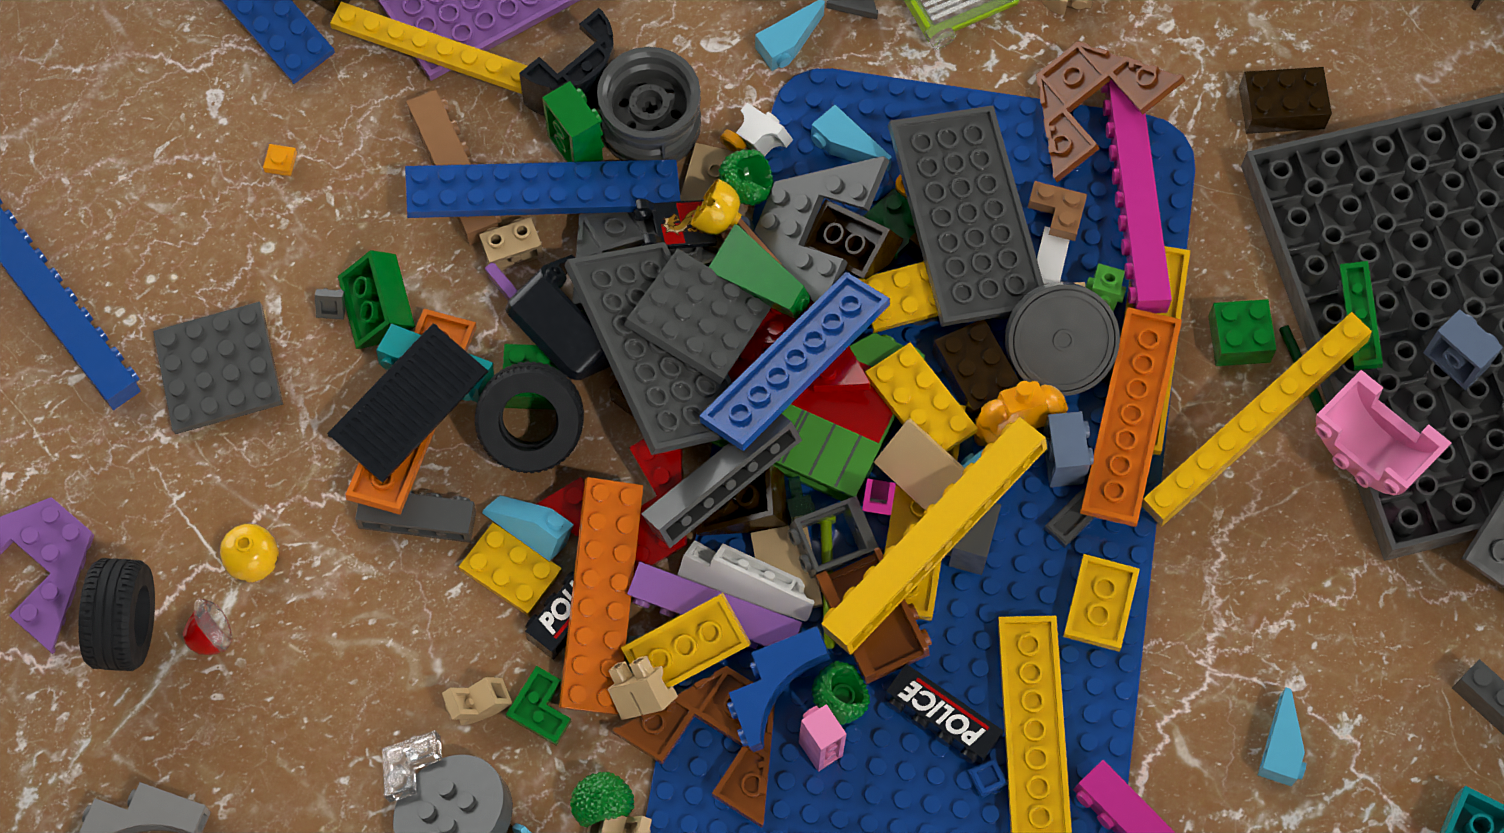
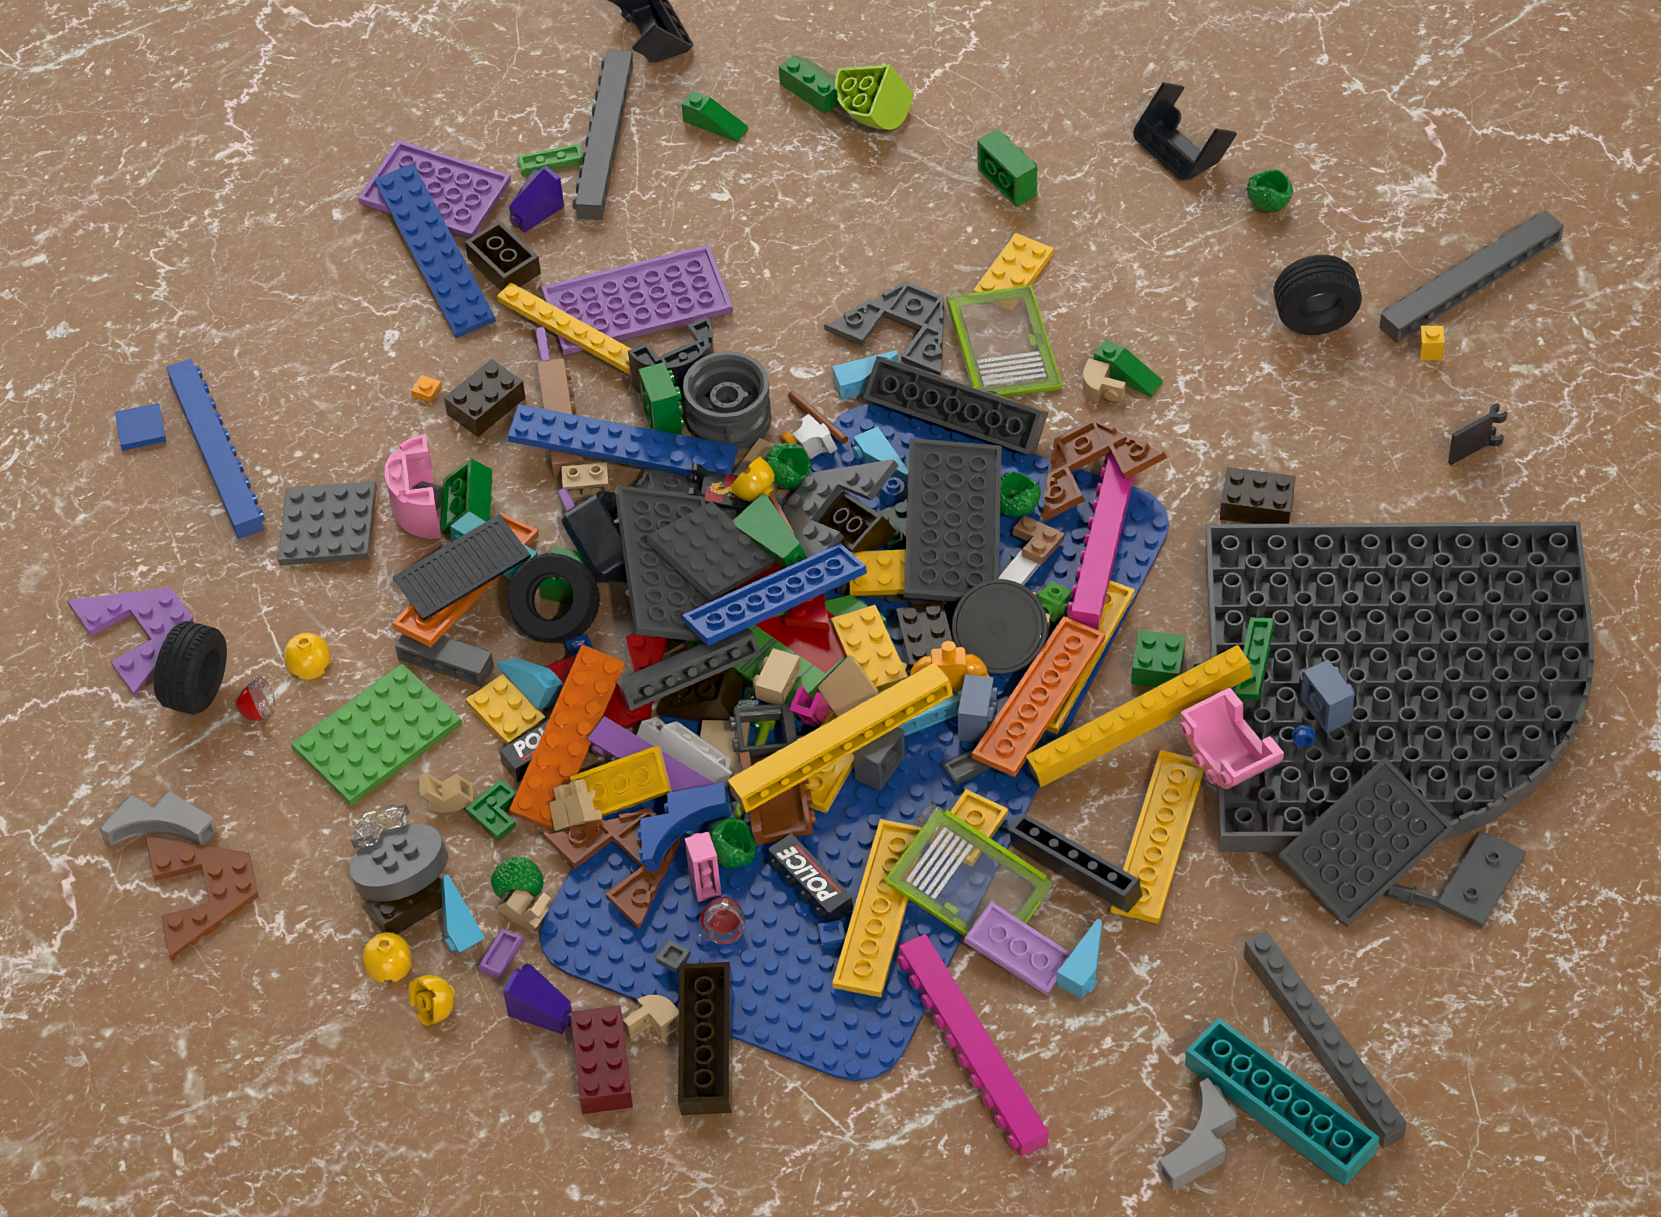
camera: 20 degrees right, 15 degrees down
(325, 335) = (413, 508): none -> bright pink cylinder
(356, 159) = (484, 397): none -> dark brown brick
(365, 637) = (376, 734): none -> bright green plate
(404, 77) = (542, 344): none -> medium lavender tile
(575, 467) = (573, 645): none -> blue plate
(755, 101) = (804, 405): none -> dark orange bar
(830, 466) = (777, 677): none -> tan brick
(859, 795) = (722, 921): none -> clear piece
(913, 56) = (956, 405): none -> dark grey brick
(1027, 157) = (1018, 494): none -> green hair
(1125, 673) = (960, 871): none -> clear door
(1206, 744) = (1017, 948): none -> lavender plate
(1239, 621) = (1075, 862): none -> black brick
(1313, 560) = (1161, 832): none -> yellow plate
(1446, 402) = (1303, 736): none -> blue plate

